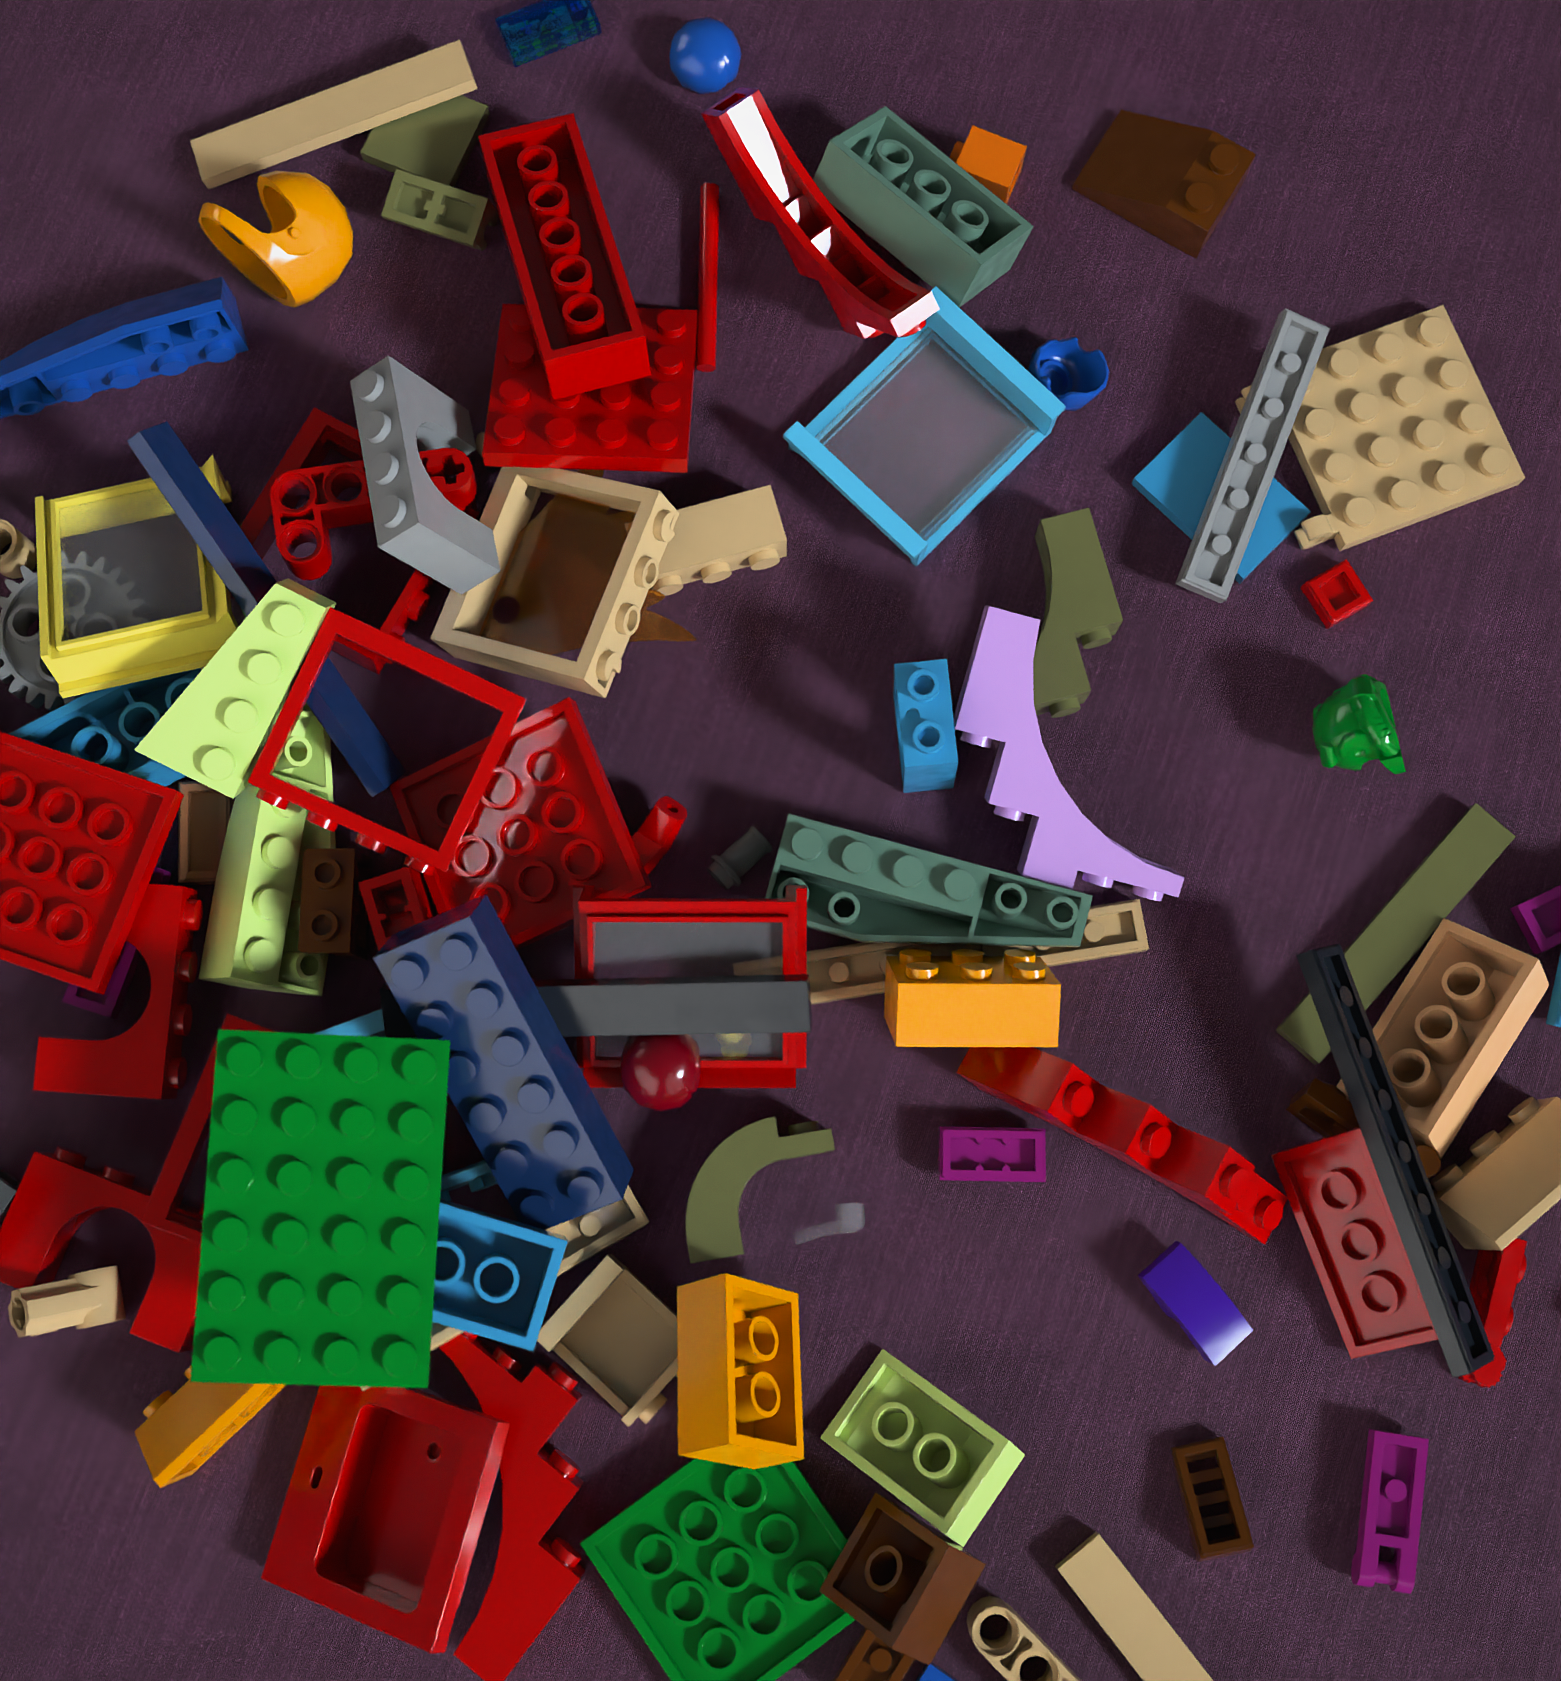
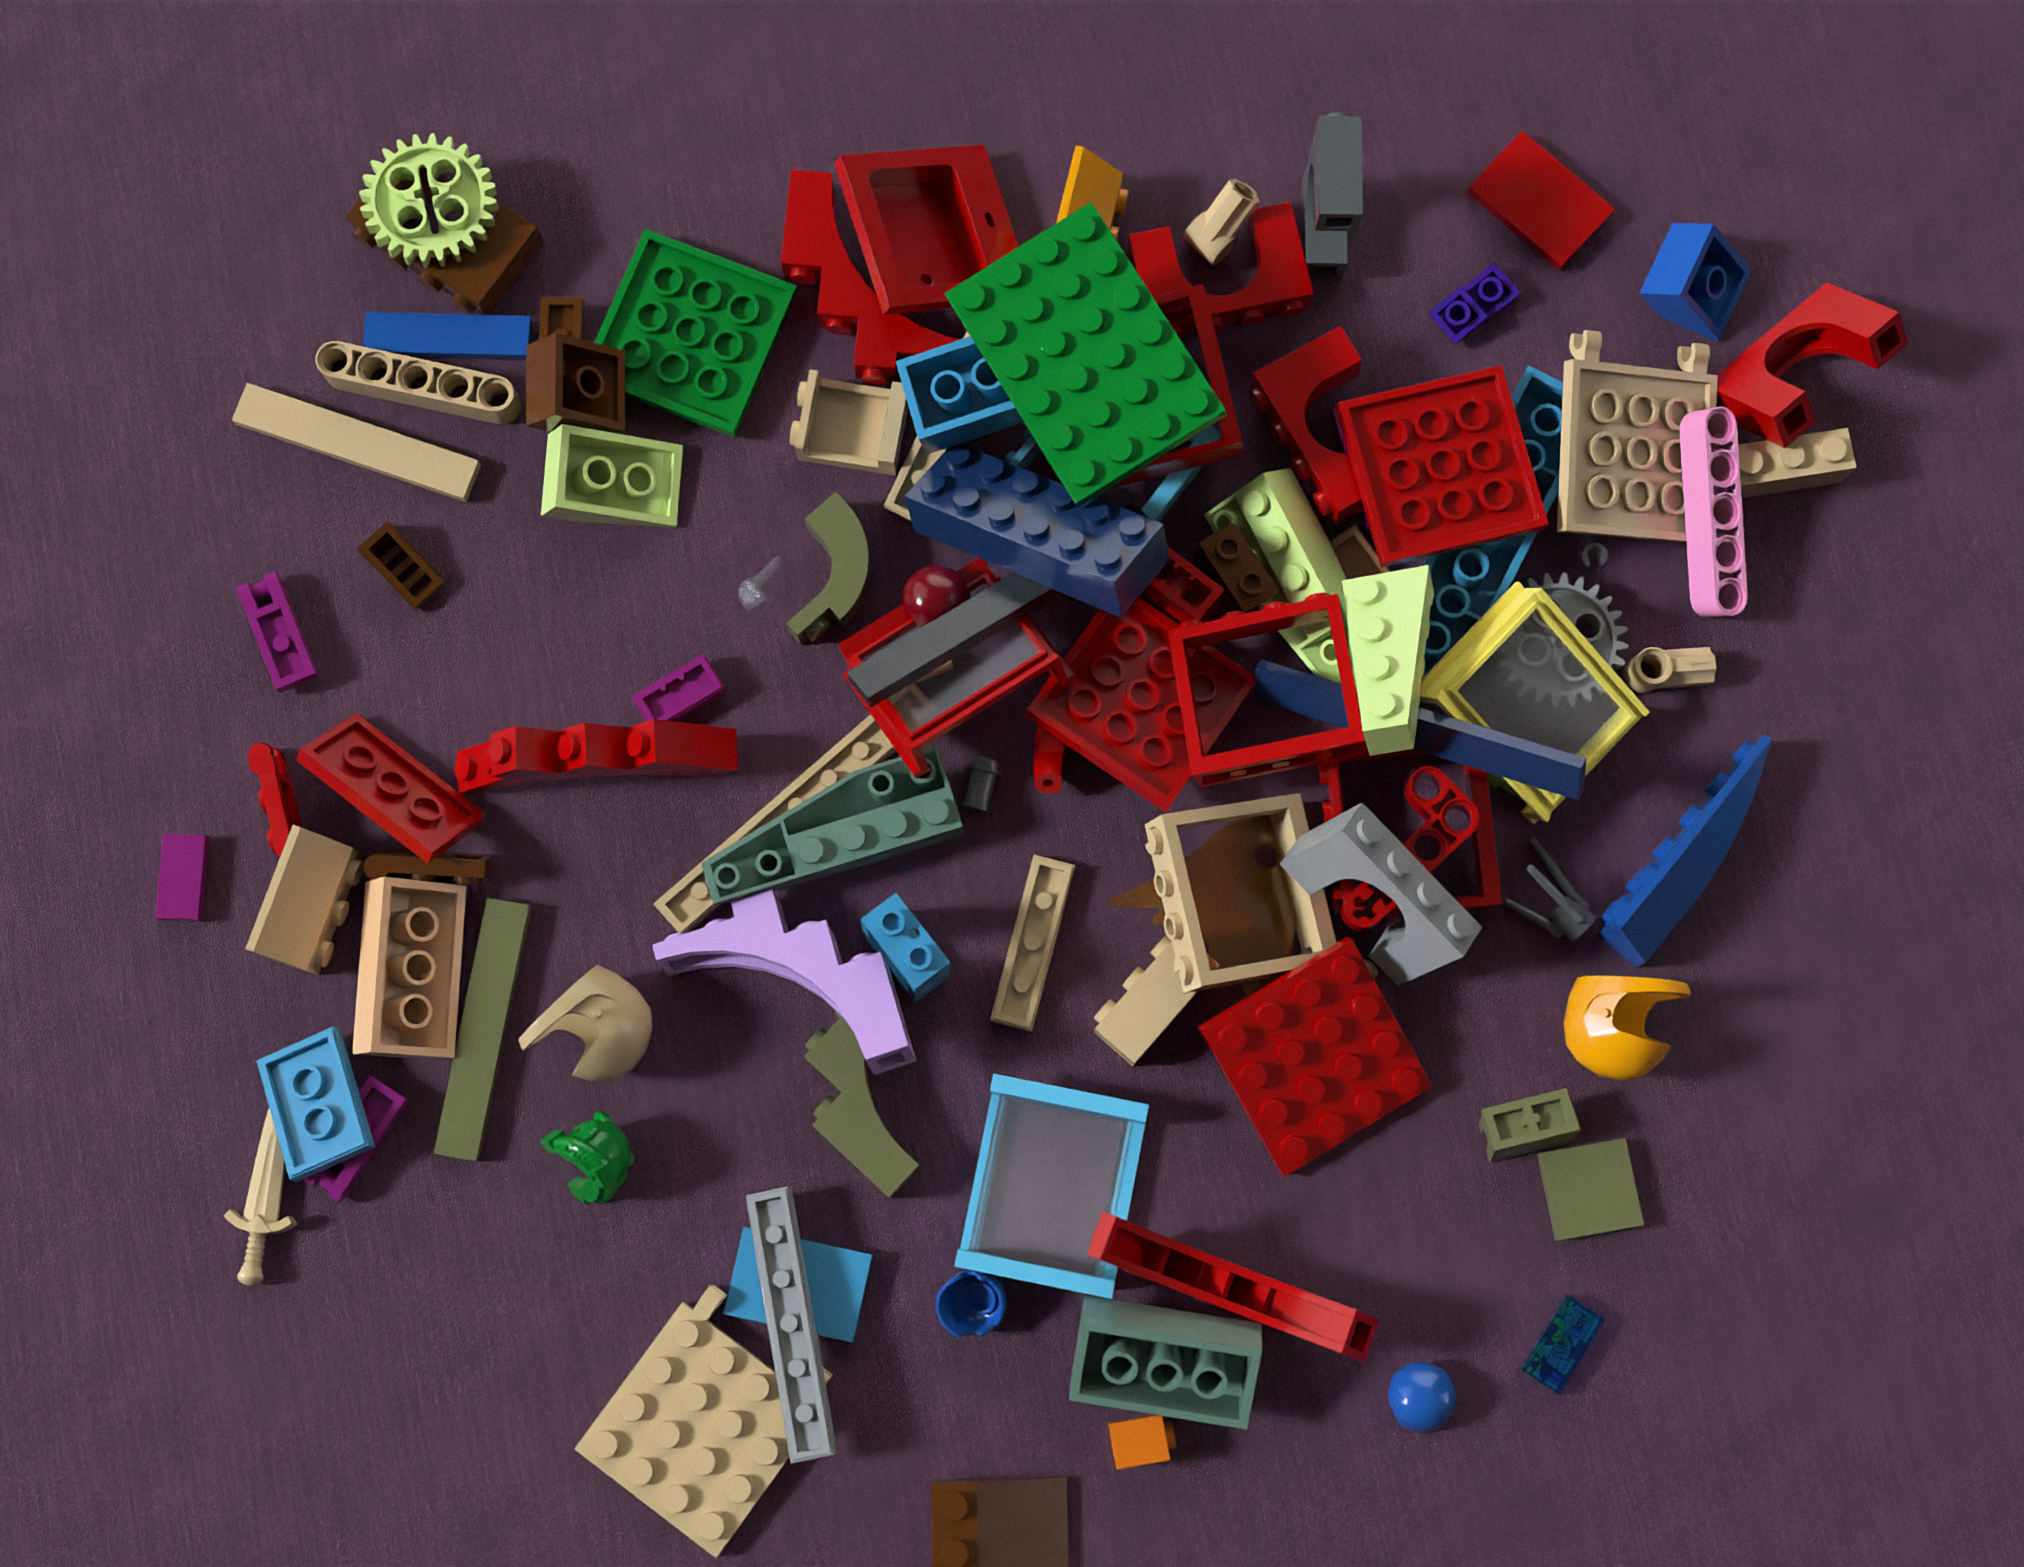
camera: 150 degrees right, 0 degrees up
(259, 376) = (1570, 913): none -> dark grey plant
(333, 114) = (1665, 1154): tan tile -> none
(565, 257) = (1404, 1136): red brick -> none
(707, 277) = (1296, 1213): red bar -> none
(739, 1373) = (757, 439): light orange brick -> none
(789, 673) = (1032, 943): none -> tan tile
(971, 999) = (754, 776): light orange brick -> none
(1195, 1302) = (482, 681): dark purple slope -> none
(1264, 854) = (606, 1017): none -> tan piece
(1336, 594) = (667, 1263): red tile -> none
(1396, 1160) = (401, 850): black tile -> none

